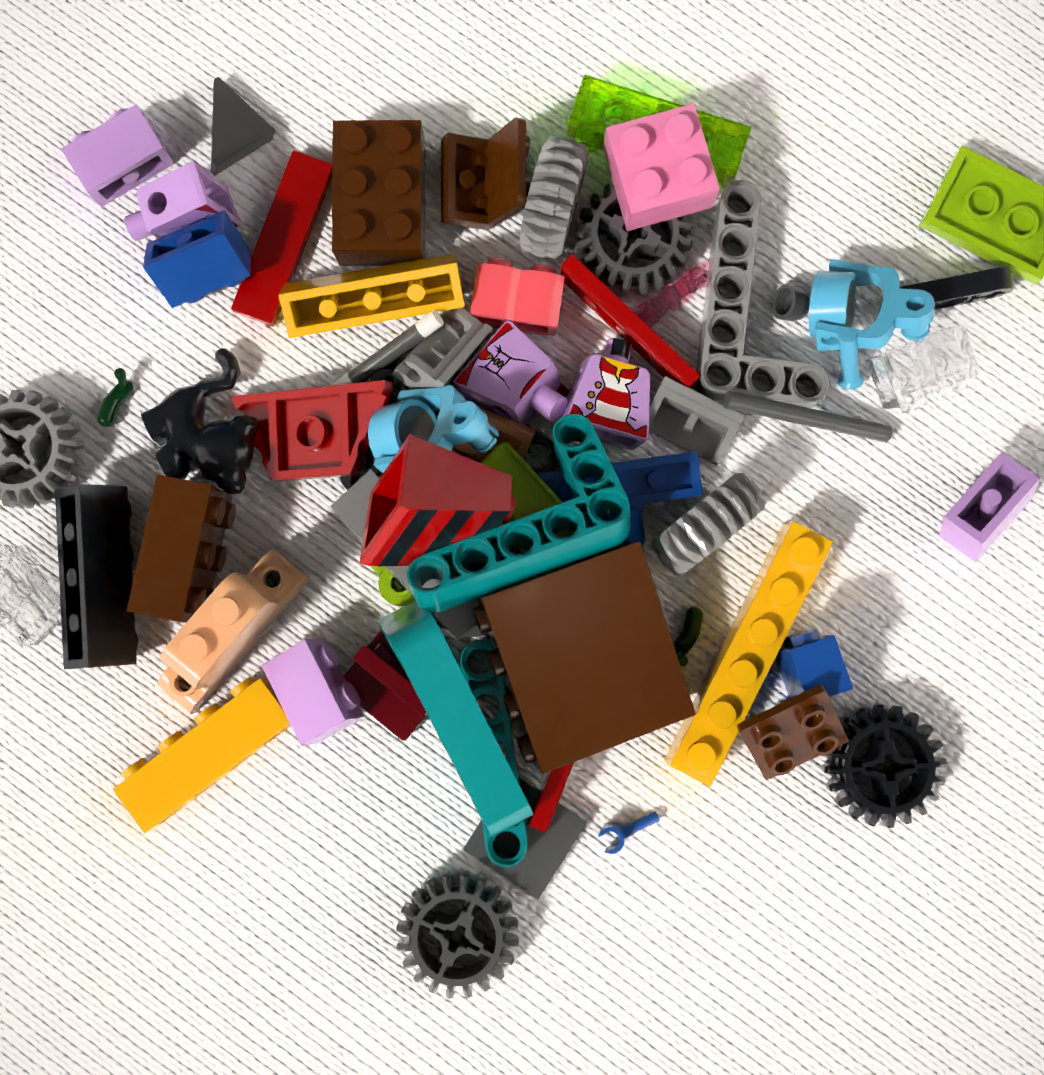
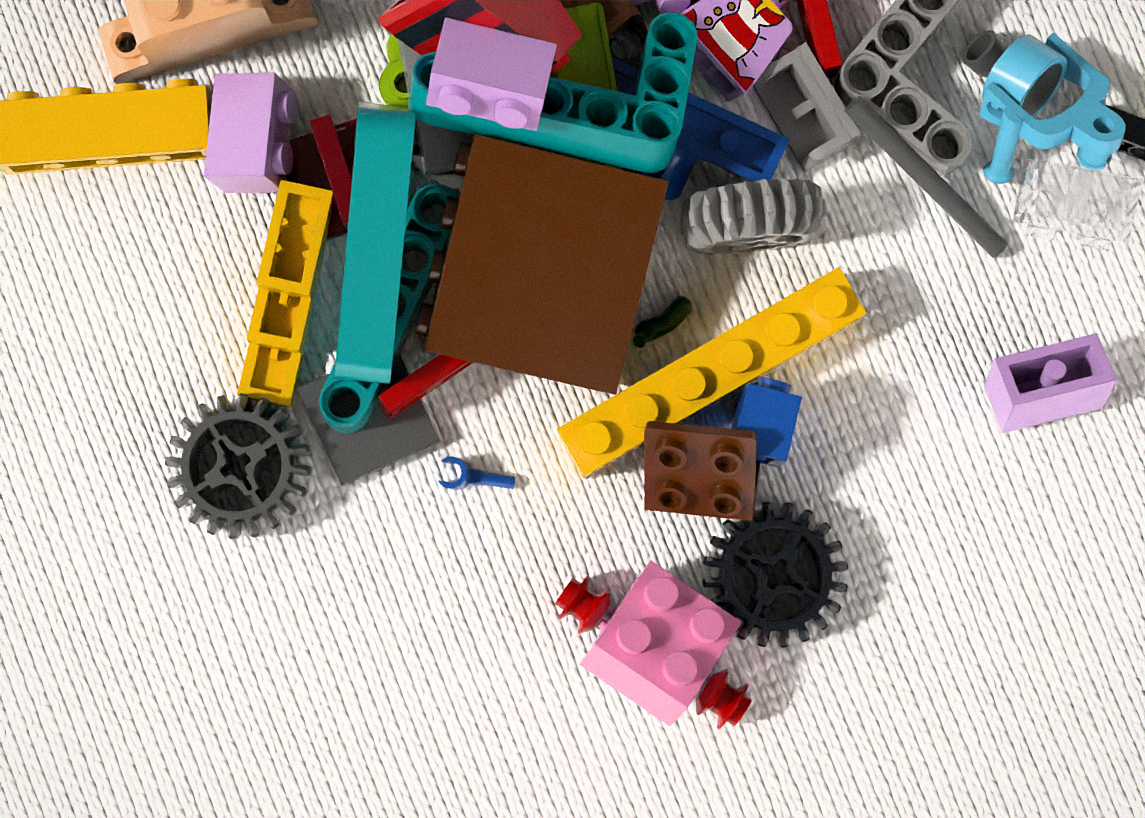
camera: 25 degrees right, 0 degrees up
(412, 788) = (286, 292): none -> yellow slope
(470, 552) = (490, 74): none -> lavender brick
(838, 871) = (659, 645): none -> bright pink brick

